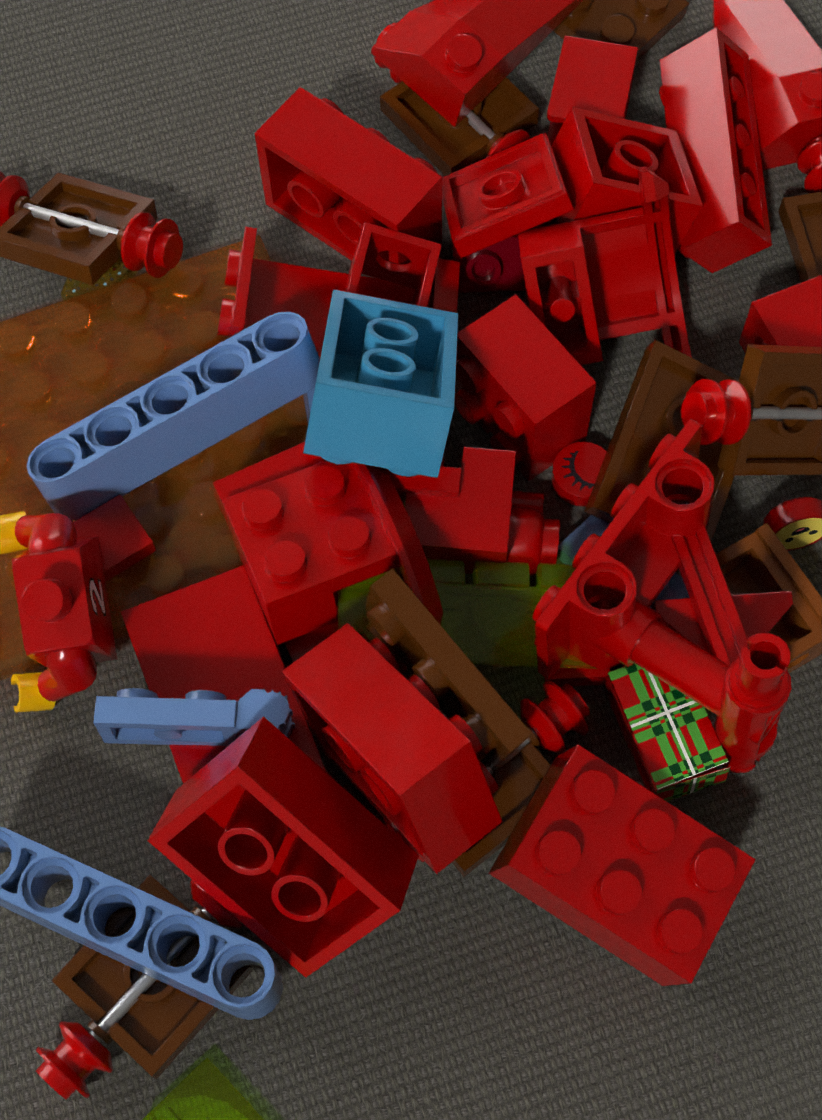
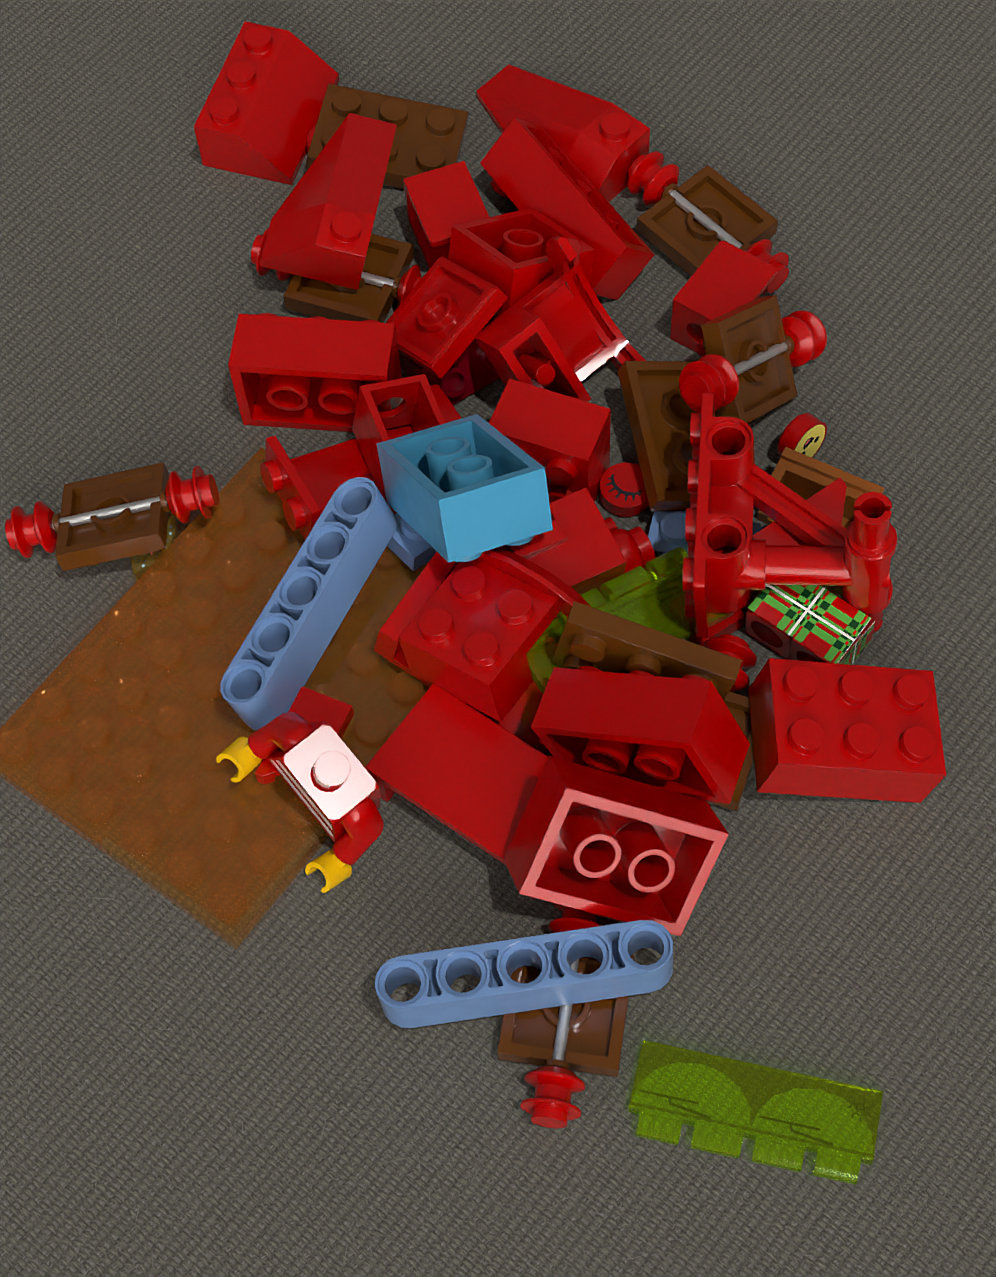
camera: 30 degrees left, 5 degrees down
(199, 719) = (482, 803): medium blue hinge -> none

